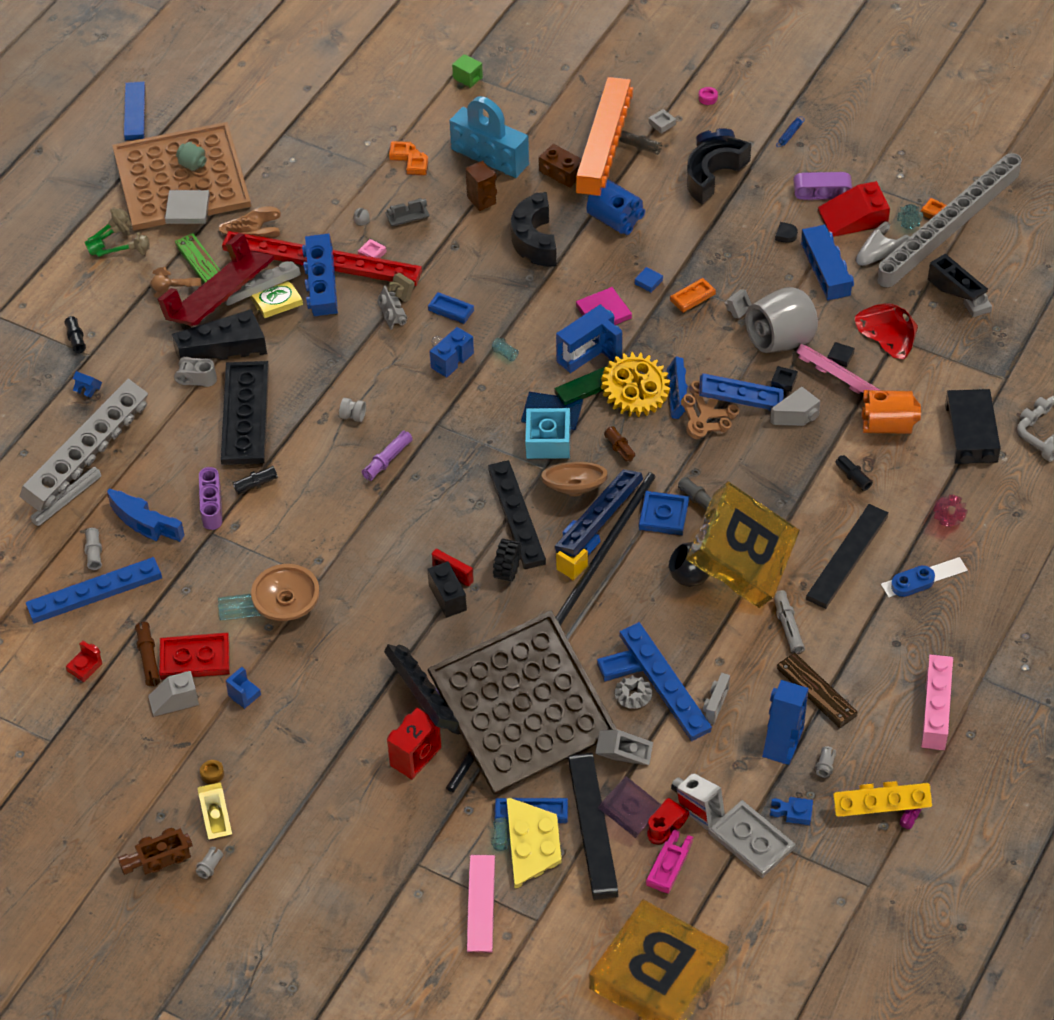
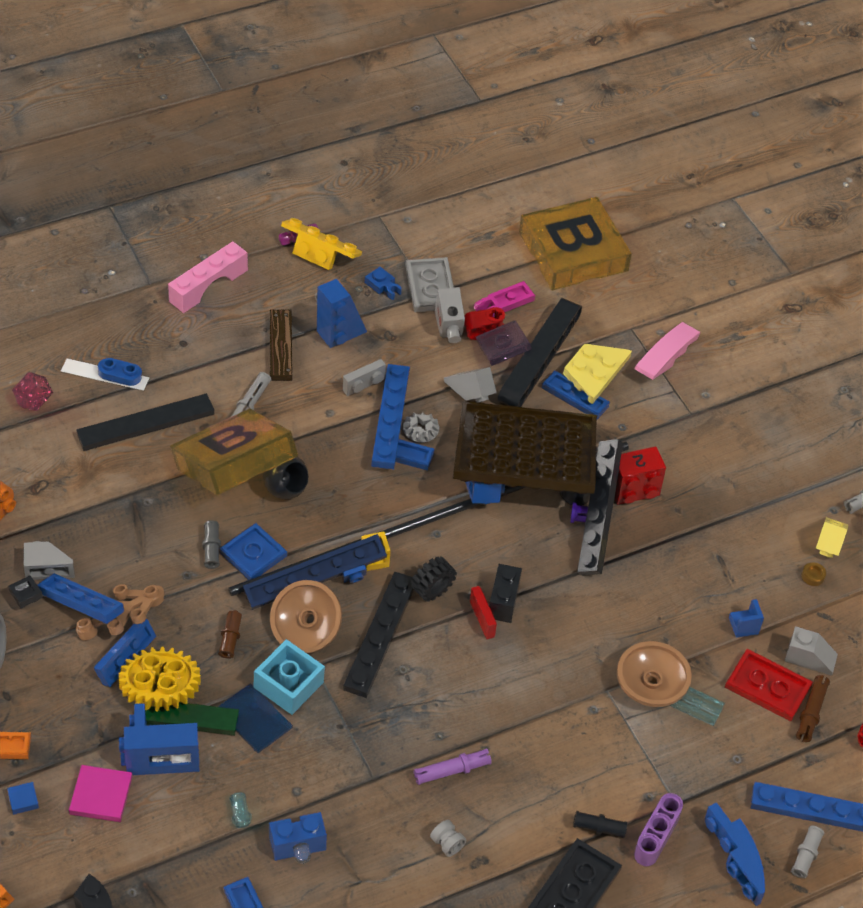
camera: 150 degrees left, 0 degrees up
(500, 837) = (617, 385): clear light blue pin -> none
(854, 472) = (63, 479): black axle -> none

